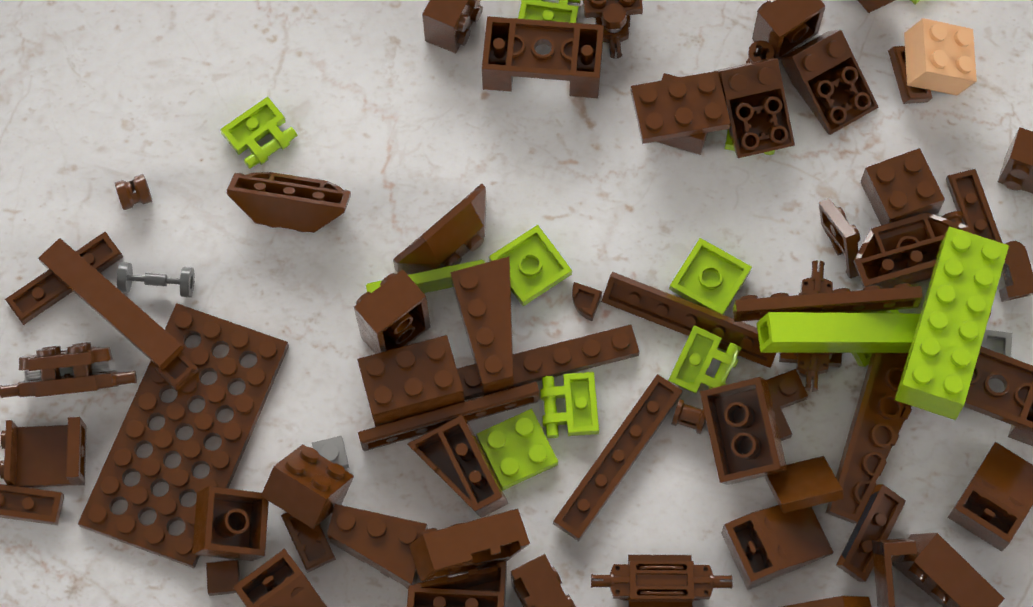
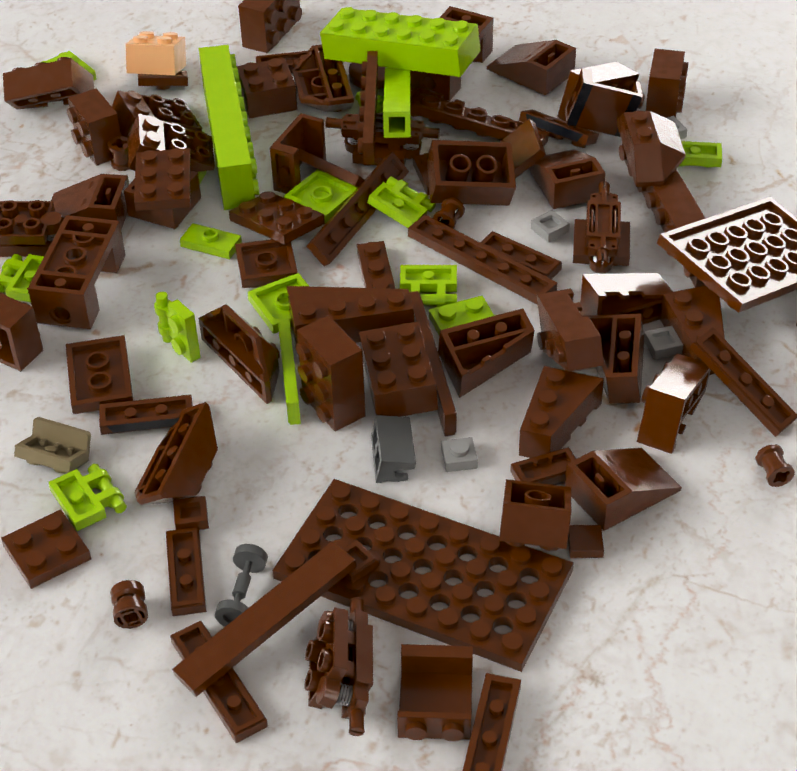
camera: 85 degrees left, 25 degrees down
(180, 232) = (185, 571): none -> reddish brown tile
(200, 113) = (46, 548): none -> reddish brown plate
(238, 225) = (191, 513): none -> reddish brown plate
(307, 485) = (499, 449): reddish brown brick -> none
(310, 92) = (55, 446): none -> dark tan bracket
(326, 390) = (392, 448): none -> dark grey hinge
(362, 162) = (142, 414): none -> reddish brown plate
(414, 110) = (98, 373): none -> reddish brown plate
(463, 167) = (177, 326): none -> lime plate
(586, 300) = (326, 274): reddish brown tile -> none
(592, 237) = (264, 262): none -> reddish brown plate
(628, 177) = (210, 241): none -> lime plate
(632, 499) = (524, 255): none -> reddish brown tile
(660, 44) = (94, 198): none -> reddish brown slope
(662, 236) = (276, 217): none -> reddish brown plate
(683, 529) = (550, 225): none -> light grey plate
(758, 274) = (329, 168): none -> reddish brown tile
(765, 232) = (303, 133): none -> reddish brown panel
(807, 156) = (228, 126): none -> lime brick
(841, 234) = (305, 104): reddish brown wing -> none

